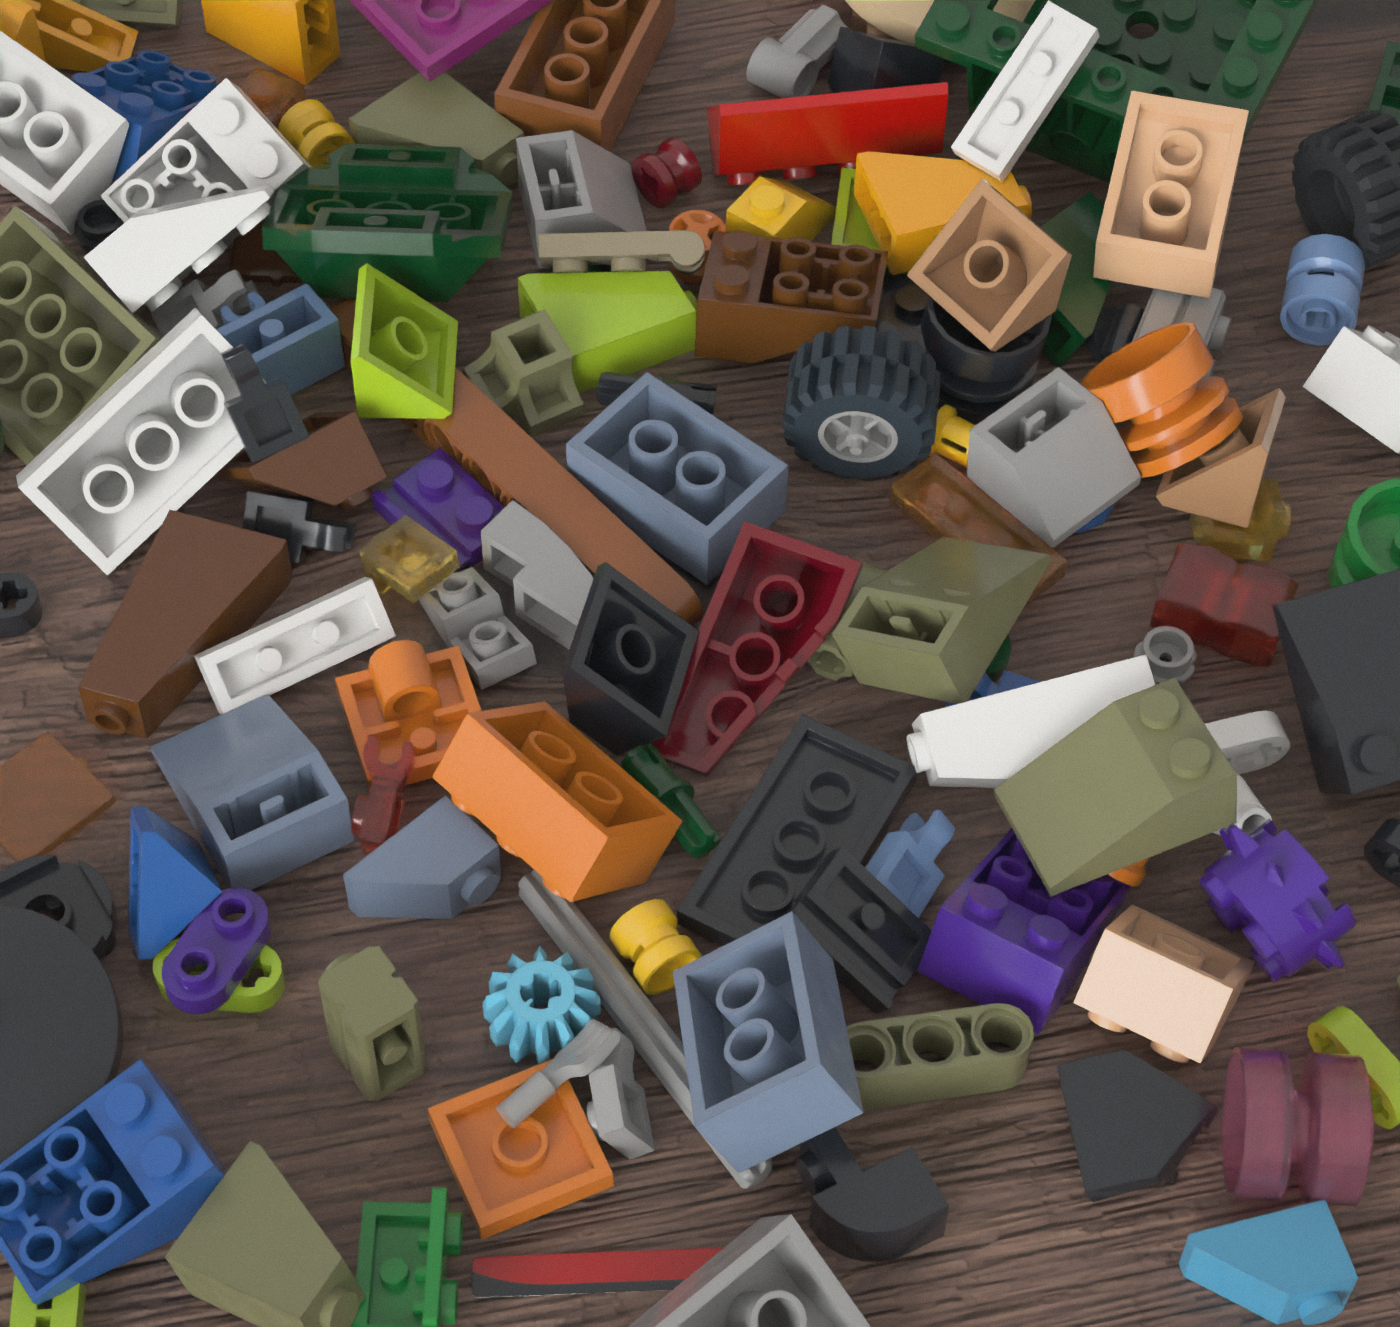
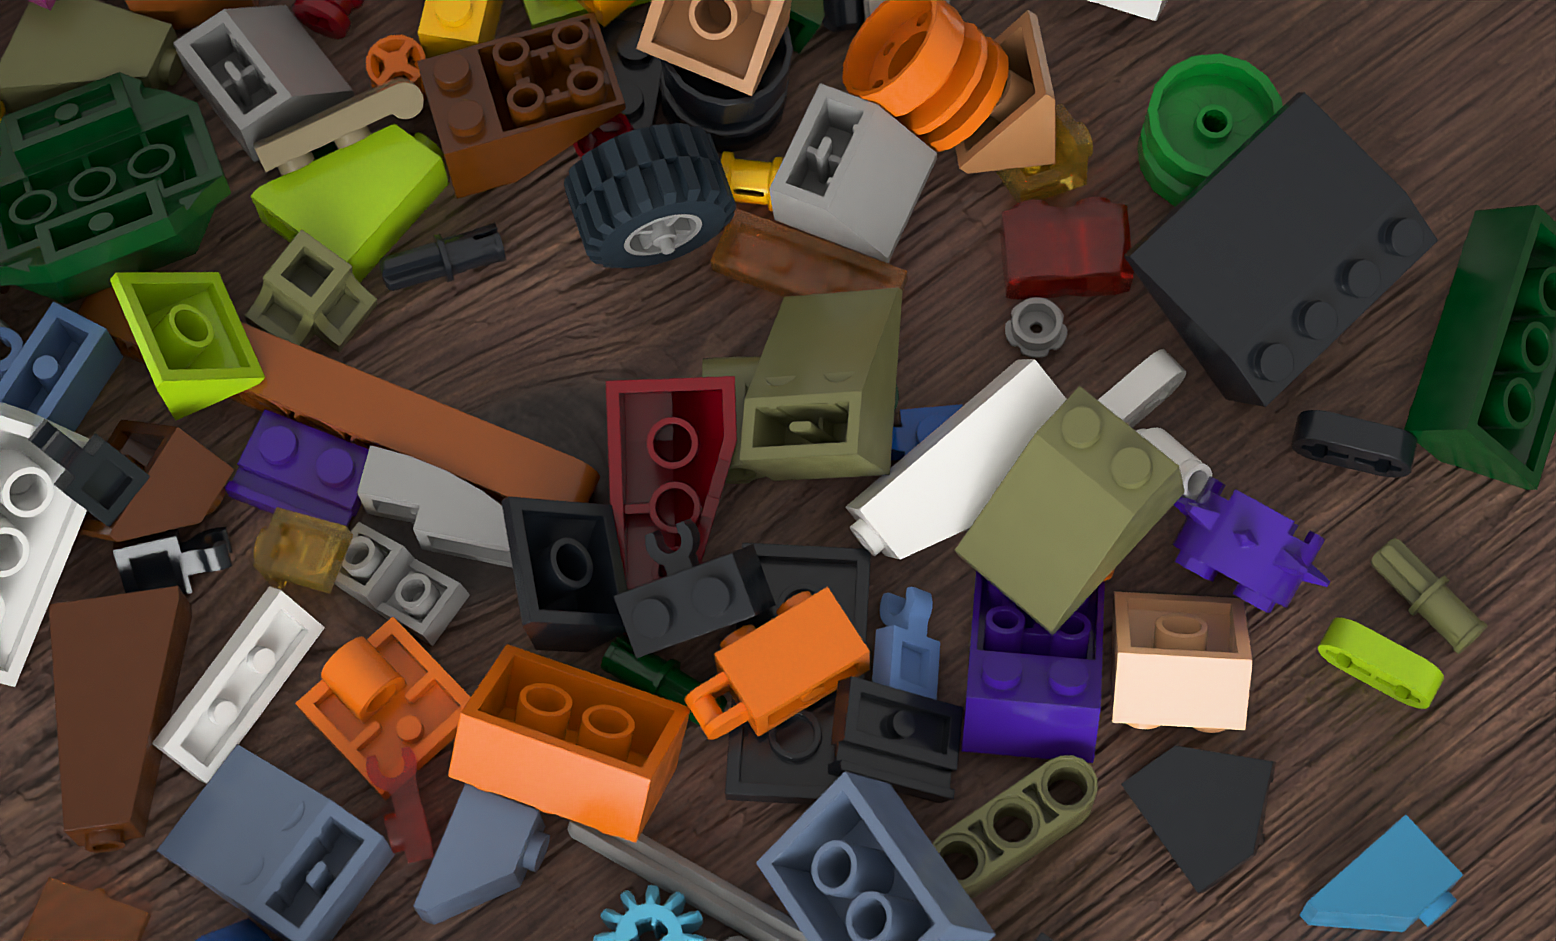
camera: 20 degrees left, 15 degrees up
(652, 942) = (722, 836): yellow wheel -> none
(677, 475) = (509, 346): sand blue brick -> none
(733, 726) = (693, 594): none -> black brick
(779, 818) = (780, 666): none -> orange brick
(1319, 1127) = (1359, 756): clear pink wheel -> none

